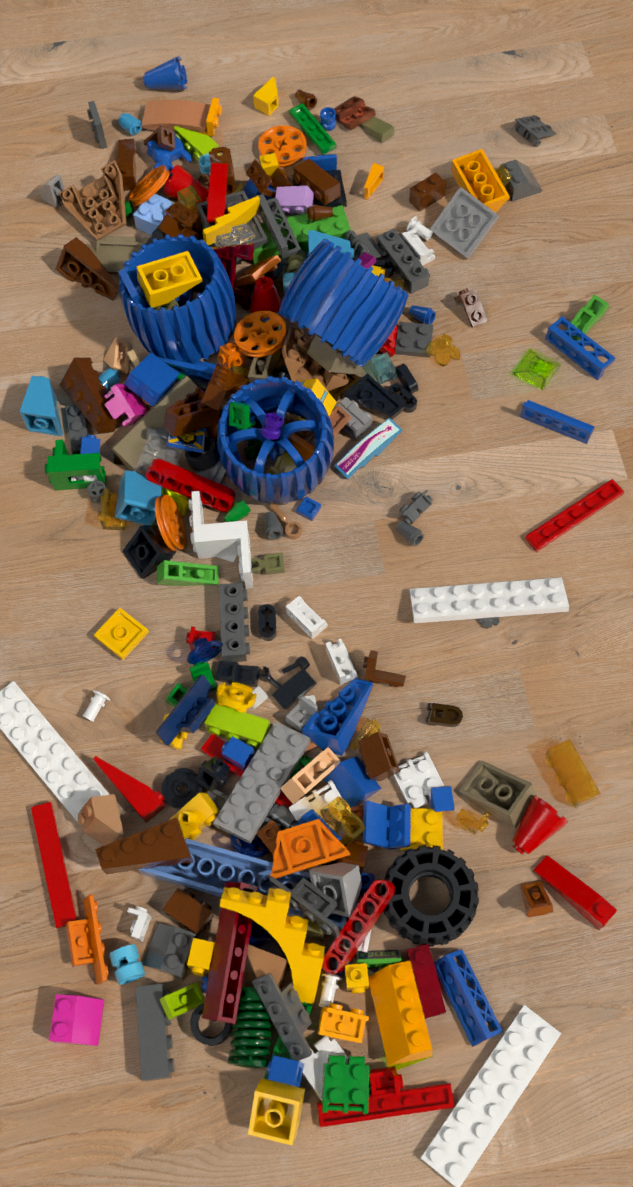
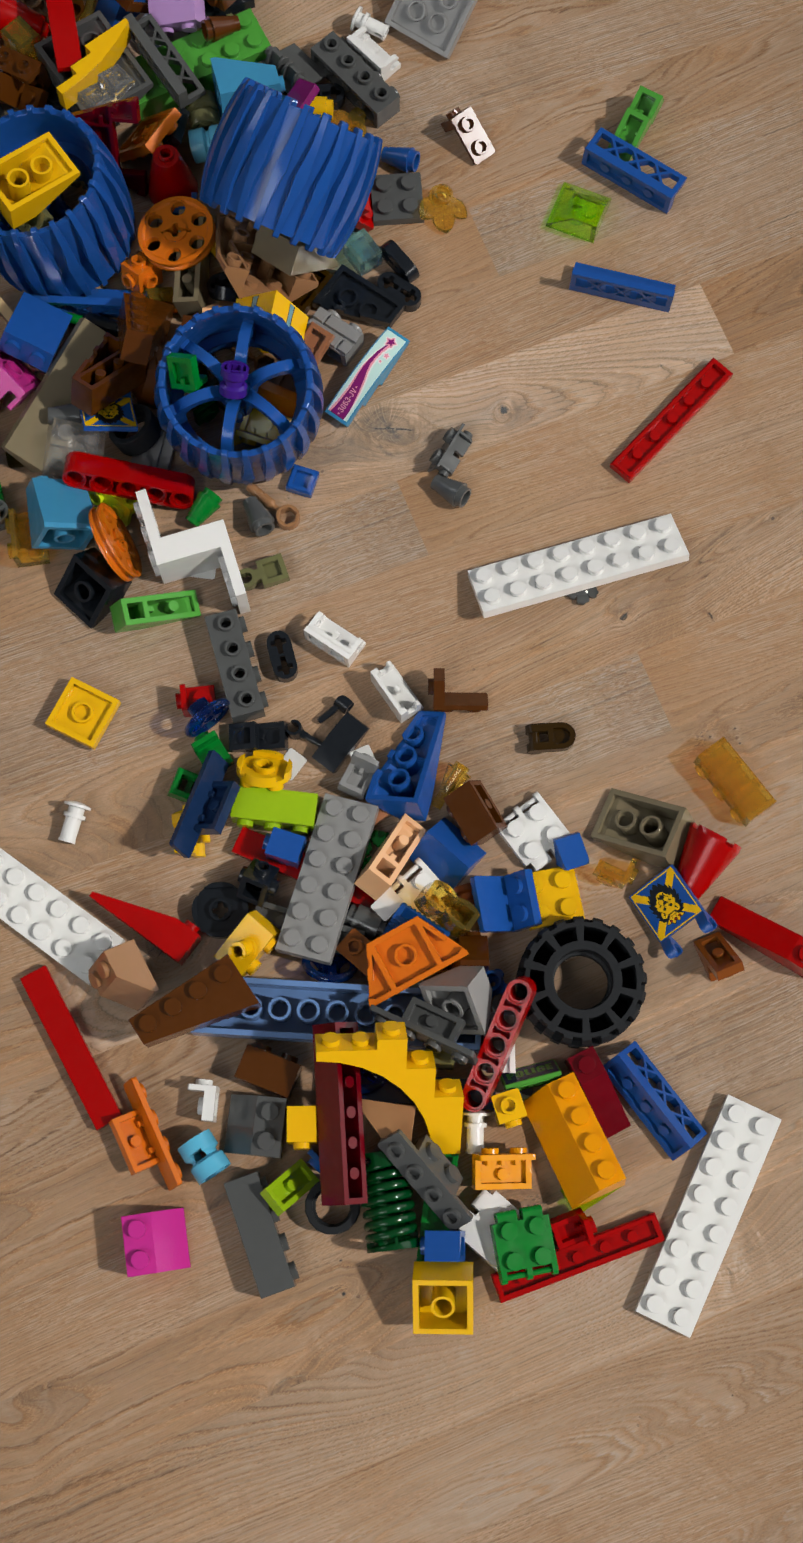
camera: 15 degrees left, 10 degrees up
(506, 854) = (668, 906): none -> flag

